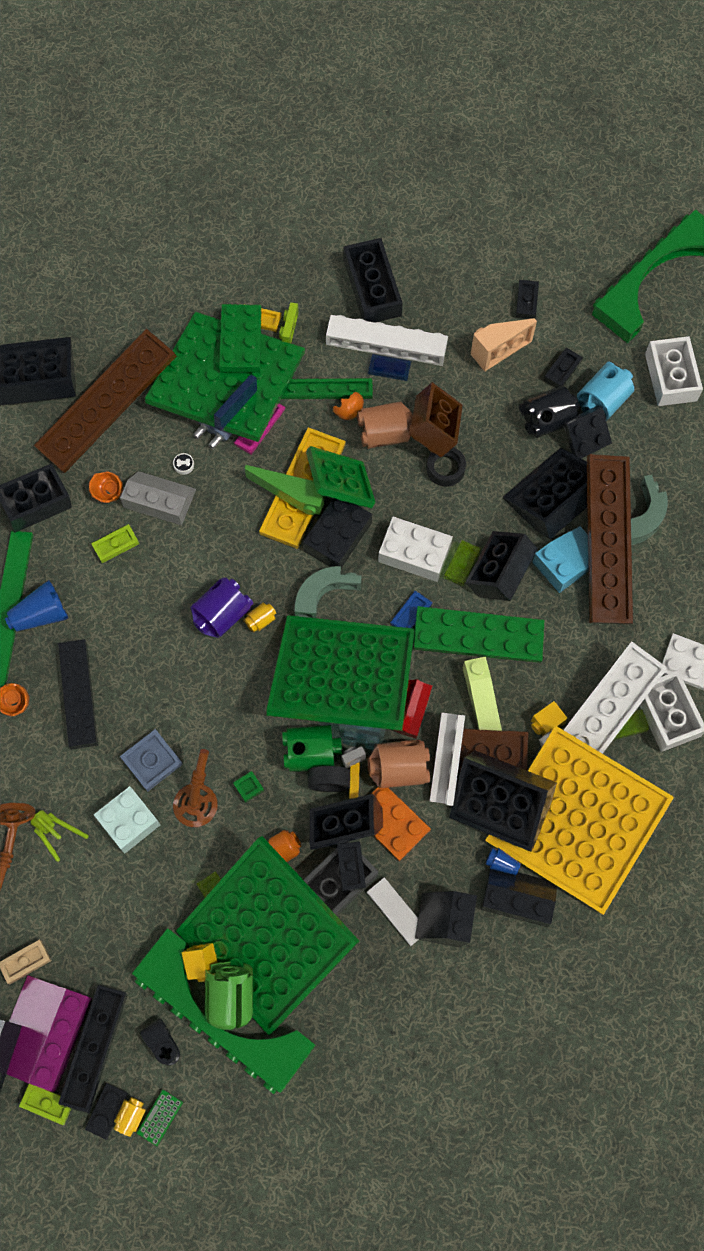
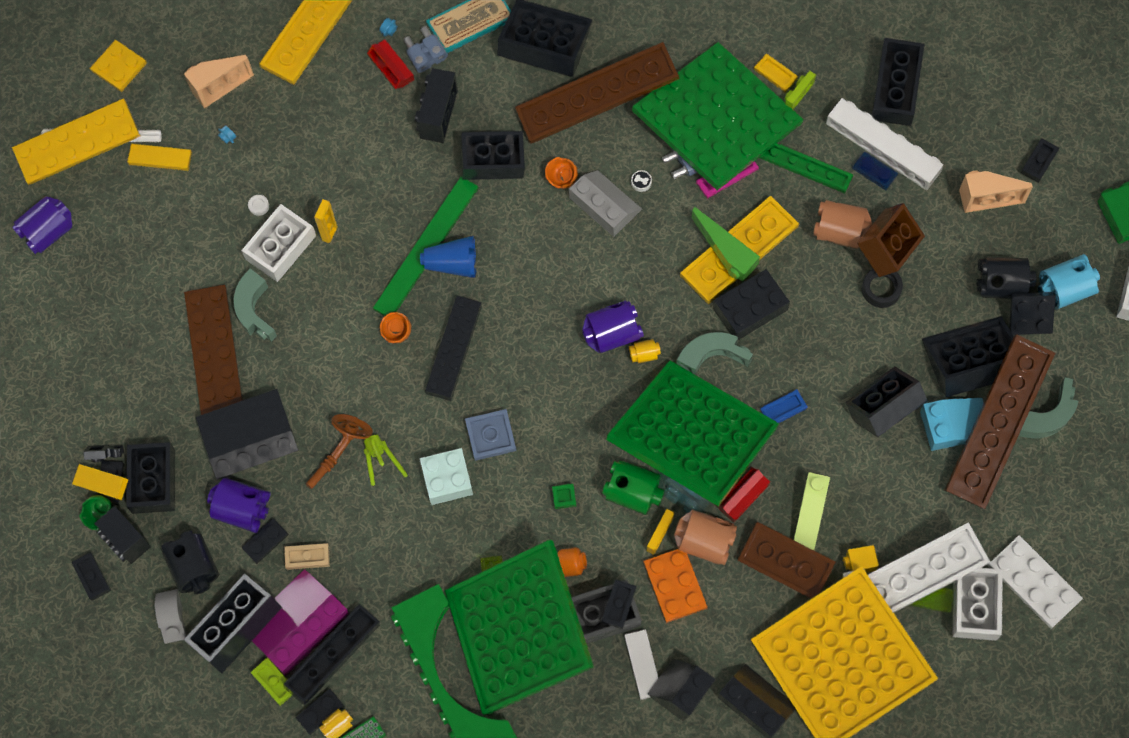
camera: 30 degrees right, 0 degrees up
(115, 543) = (546, 228): lime plate -> none
(158, 1039) = (389, 674): black piece -> none
(195, 799) = (512, 487): dark orange dish -> none
(198, 959) = (453, 625): yellow brick -> none
(228, 995) = (463, 663): bright green cylinder -> none
(235, 402) = (712, 145): dark blue tile -> none
(240, 338) = (747, 85): green plate -> none
(329, 779) = (637, 521): black tyre -> none
(340, 477) = (776, 255): green plate -> none
(345, 821) = (633, 563): black slope -> none
(350, 407) = (818, 193): orange hair -> none
(353, 756) = (666, 510): light grey plate -> none
(415, 549) = (814, 351): white brick -> none
(447, 758) = (750, 551): white fence -> none
(462, 563) = (852, 383): clear neon green plate -> none
(479, 634) = (836, 455): green plate -> none
(502, 799) = (781, 609): black slope -> none
(502, 862) = (756, 665): blue cone -> none
(563, 368) = (1041, 242): black plate -> none

